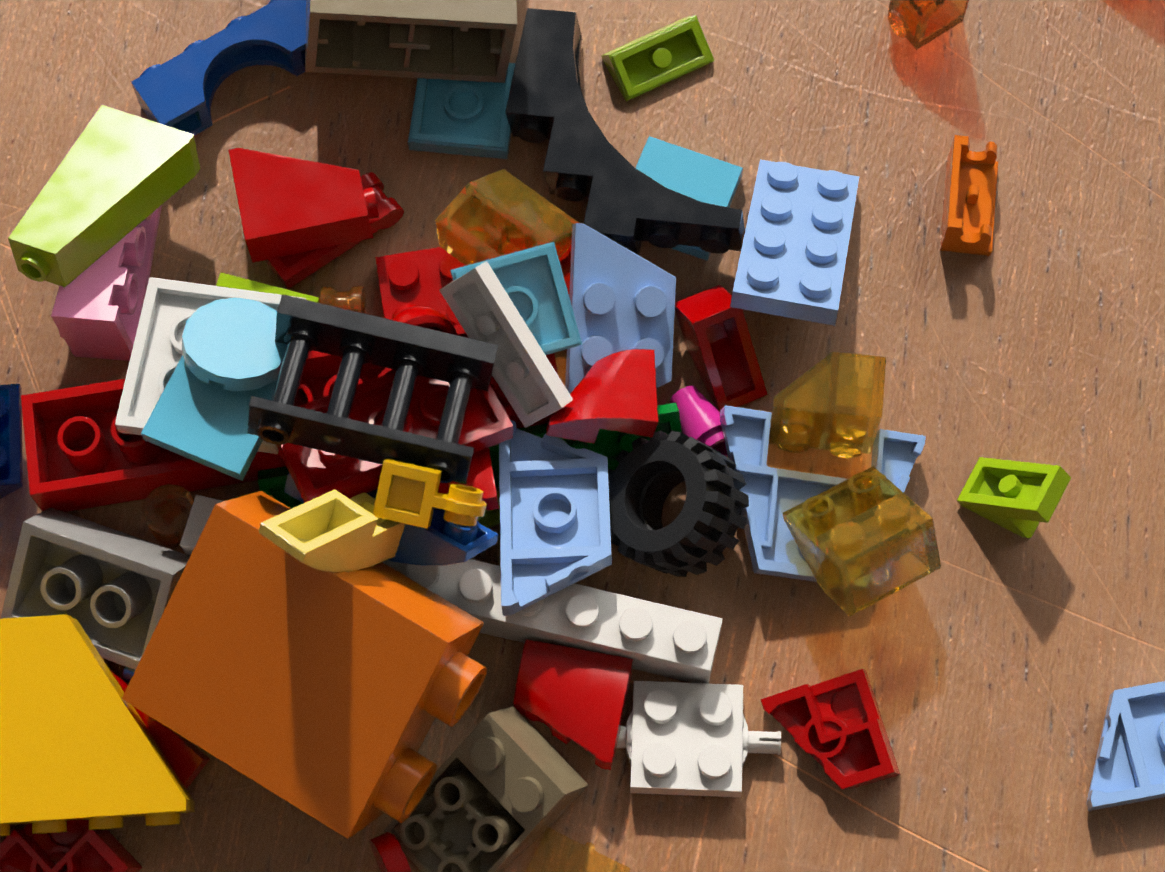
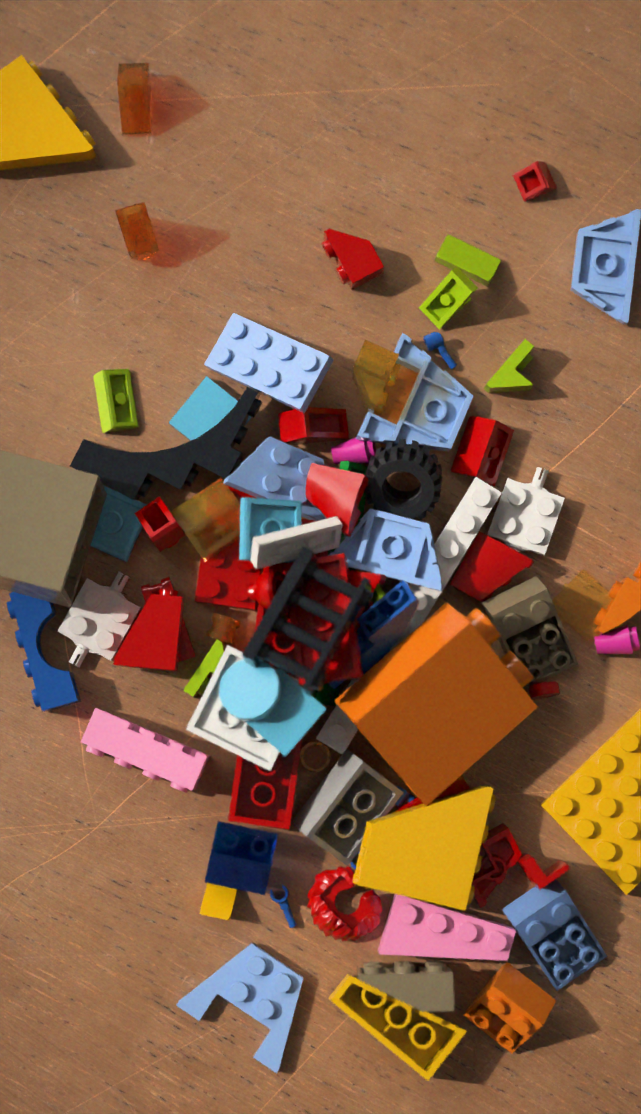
camera: 75 degrees left, 15 degrees up
(100, 193) = (120, 743): slope -> none
(307, 122) = (98, 619): none -> white plate
(335, 533) = (388, 663): light yellow slope -> none
(410, 494) = (375, 616): yellow plate -> none
(472, 153) = (160, 524): none -> red slope
(777, 632) = (482, 449): none -> red panel
(838, 728) = (544, 436): red slope -> none
(864, 540) = (454, 387): clear yellow slope -> none
(917, 626) = (507, 377): none -> lime slope
(932, 494) = (435, 340): none -> blue hand
(969, 198) = (267, 257): orange hinge -> none
(1020, 327) = (354, 256): none -> red slope
(1091, 509) = (471, 260): none -> lime slope

